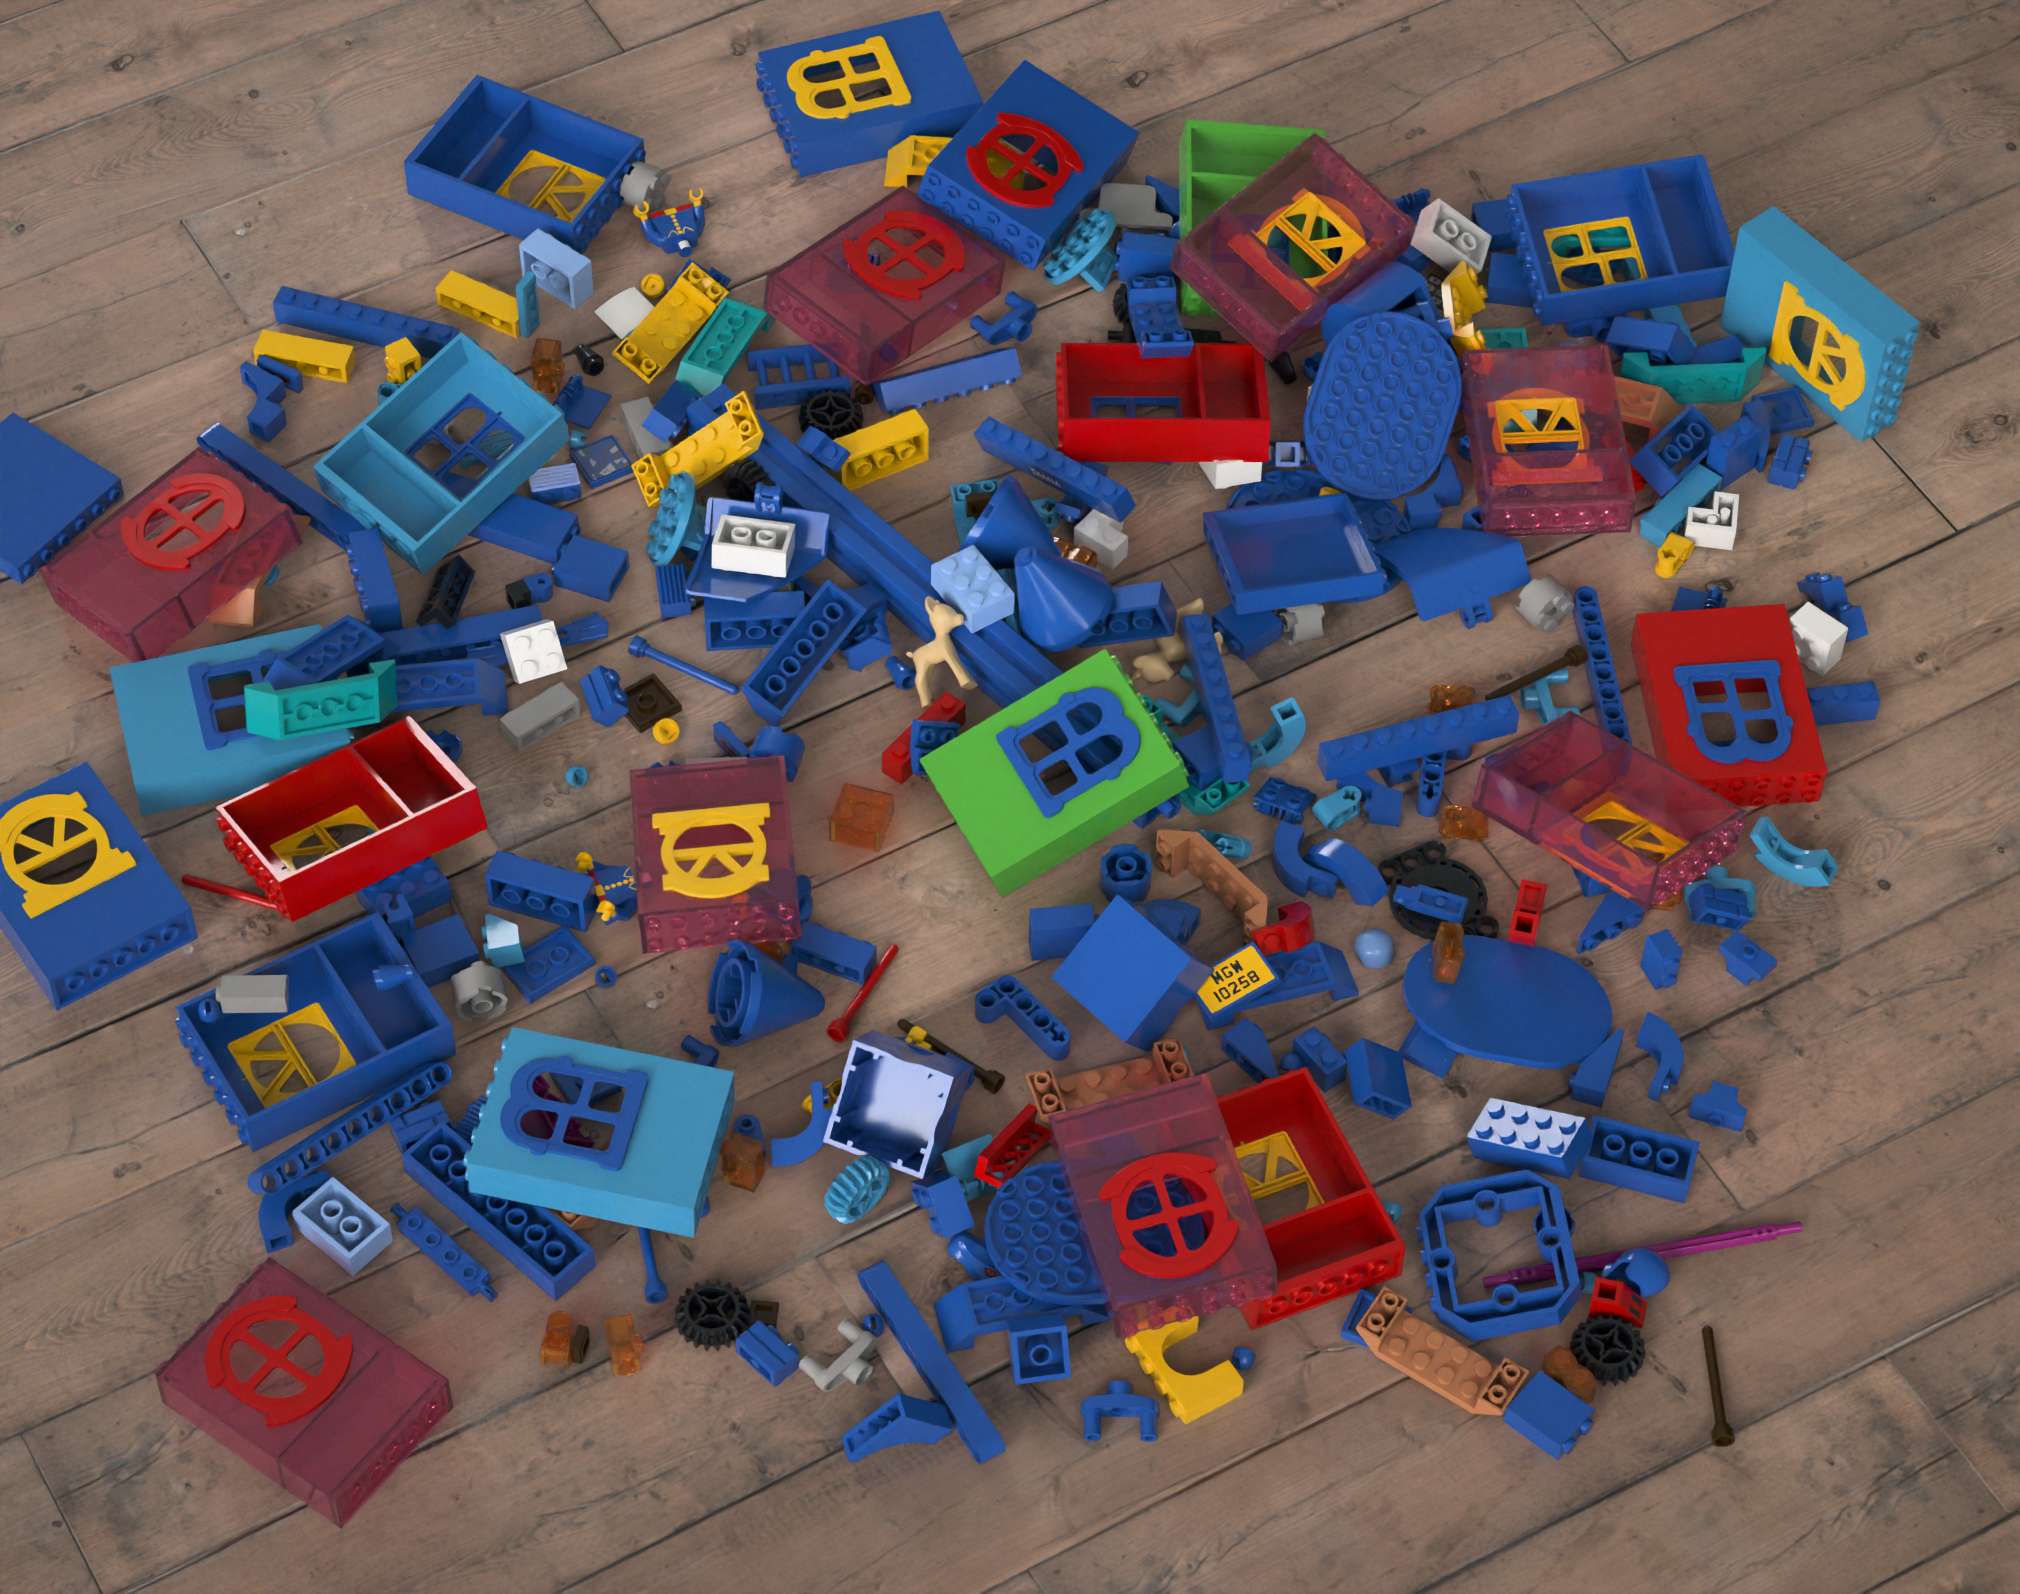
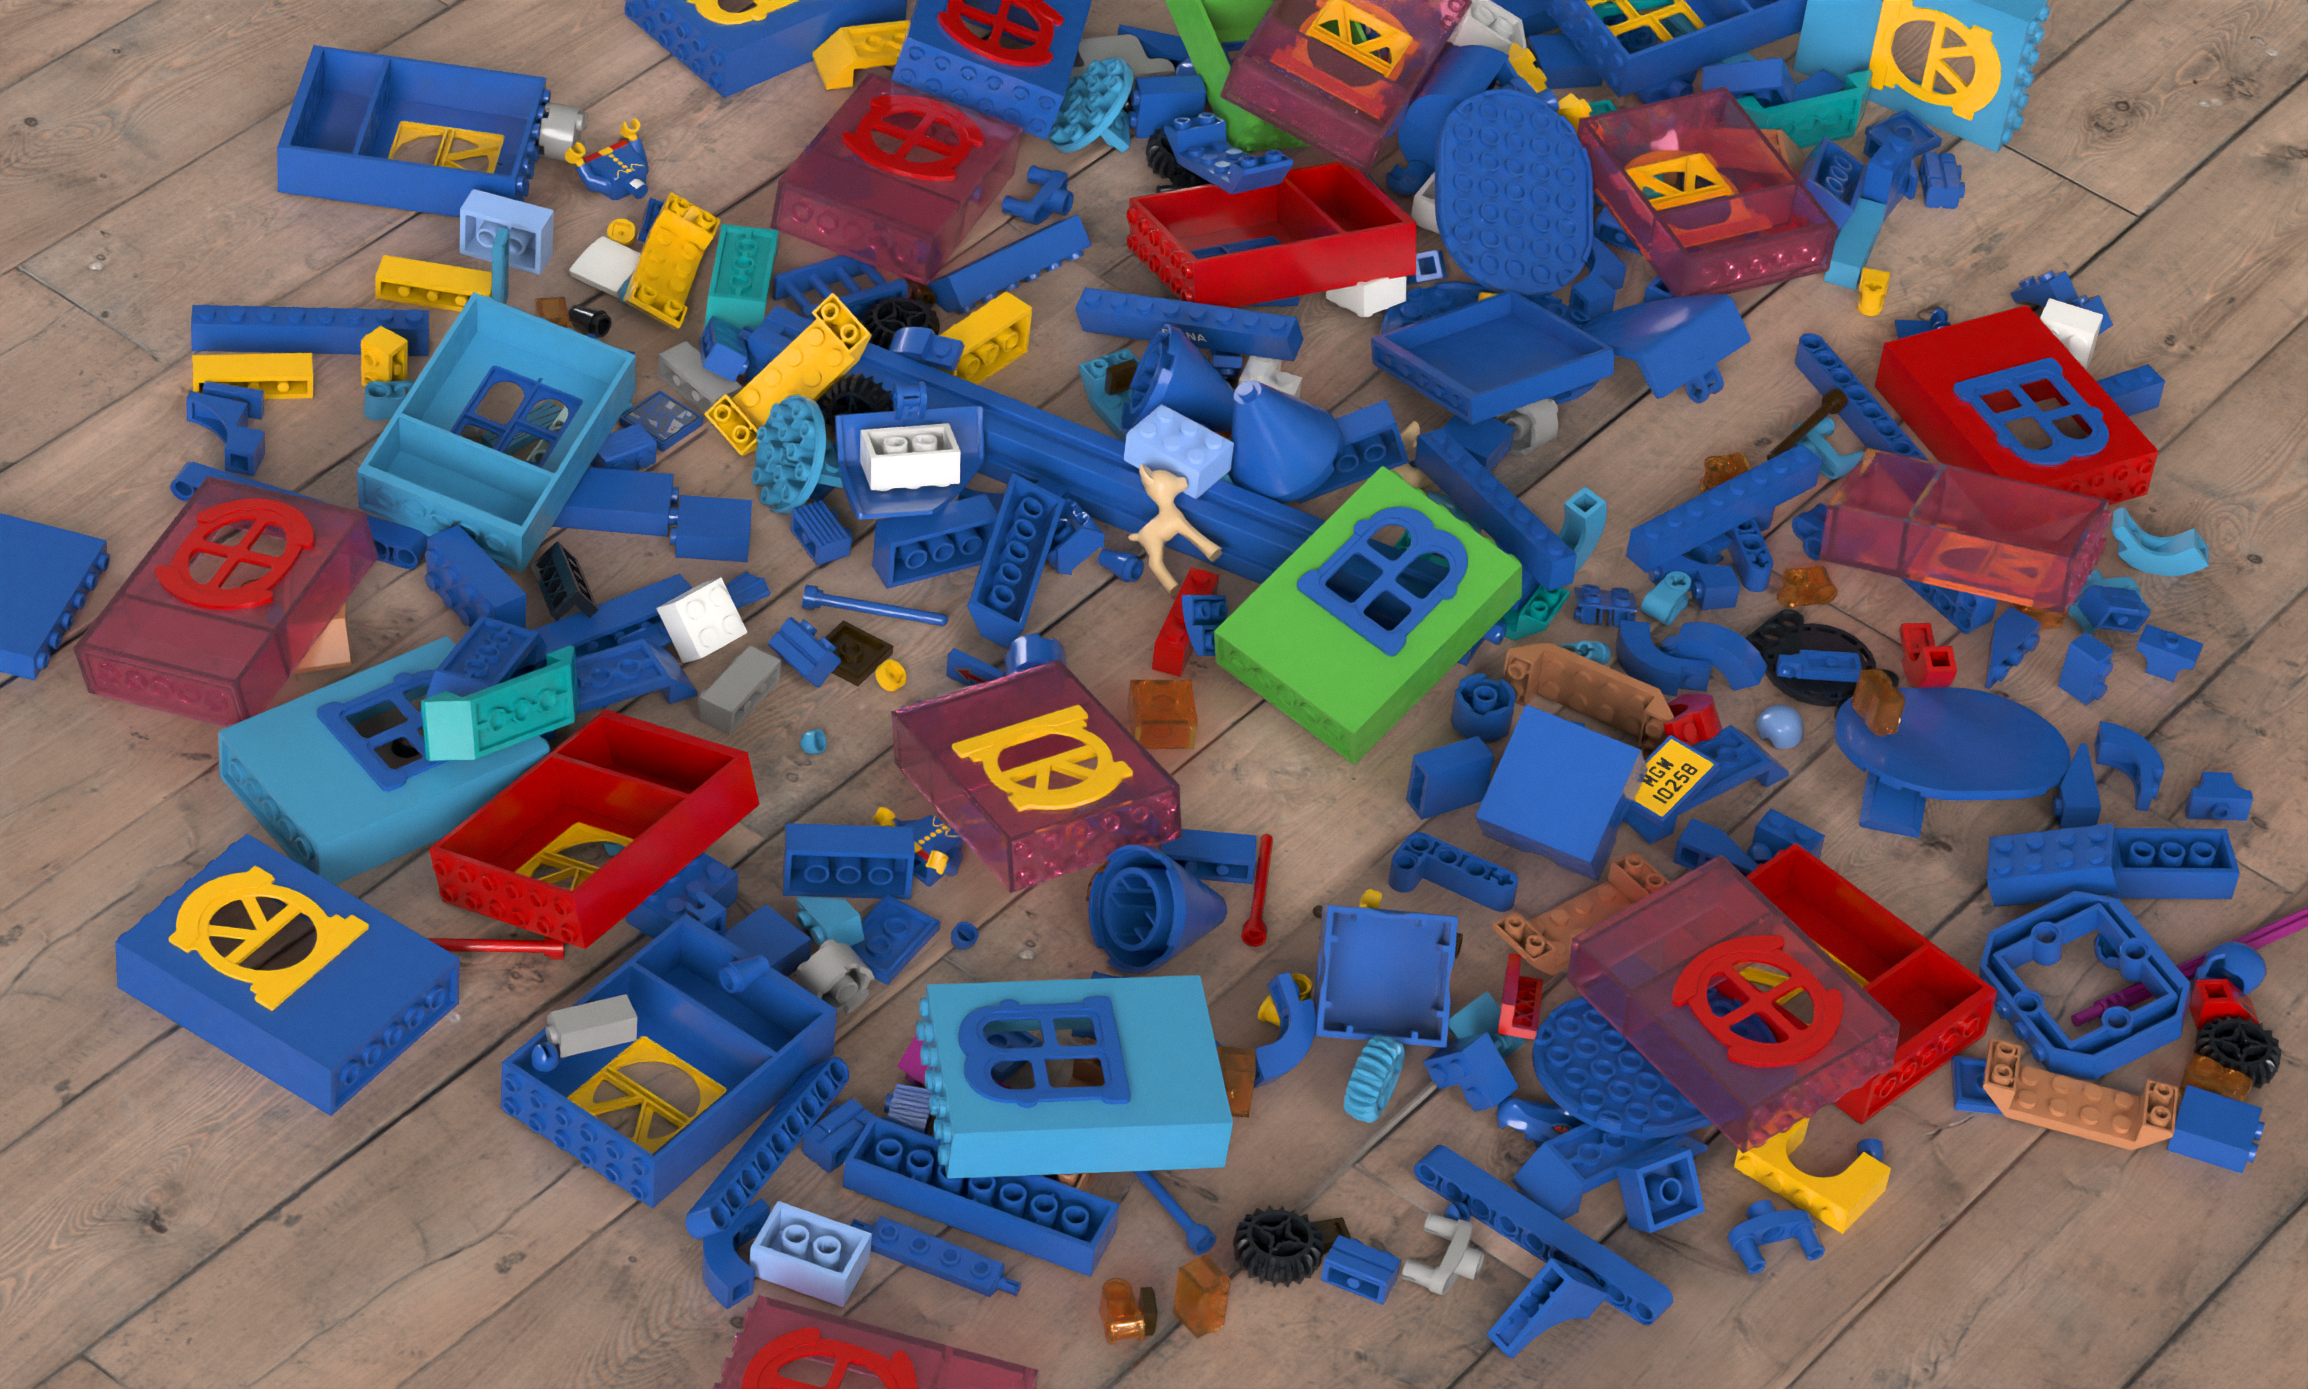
camera: 25 degrees left, 10 degrees down
(529, 591) = (654, 565): leg -> none
(1378, 1078) = (1863, 845): blue brick -> none
(1544, 603) = (1774, 358): light grey brick -> none
(1716, 525) = (1903, 250): white brick -> none

